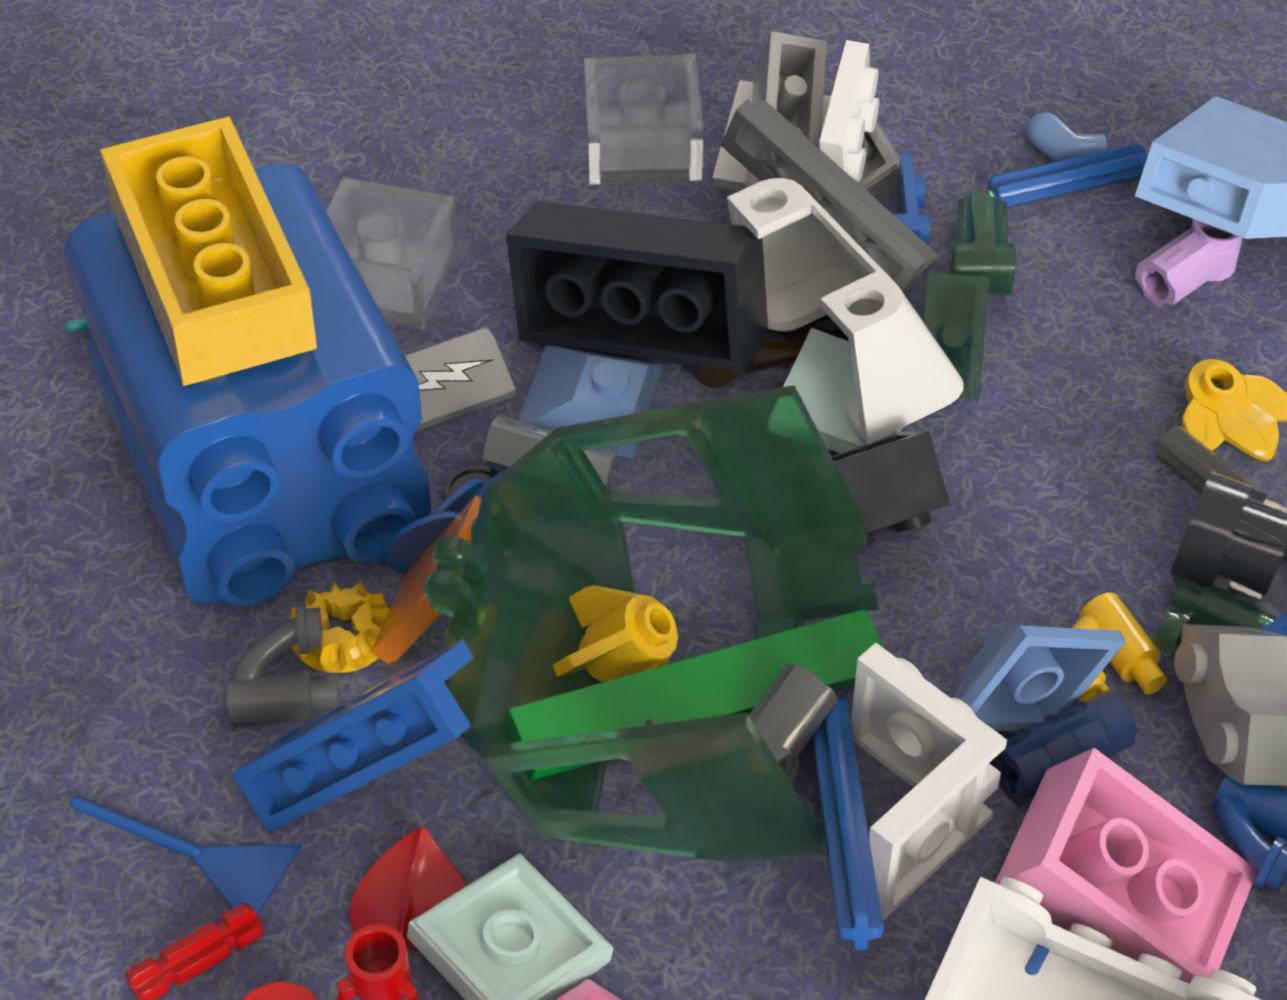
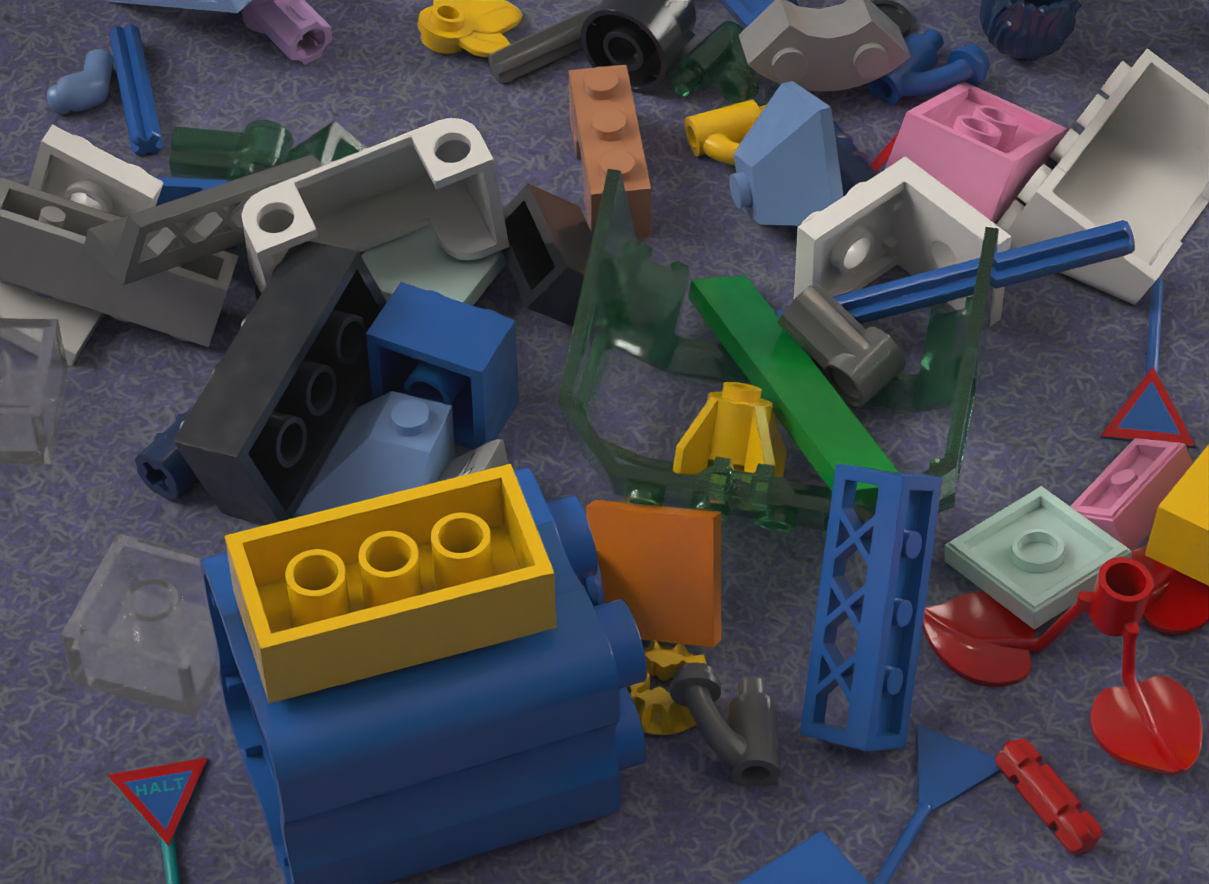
camera: 85 degrees left, 0 degrees up
(693, 365) = (448, 356): none -> blue brick
(994, 529) = (609, 138): none -> nougat arch

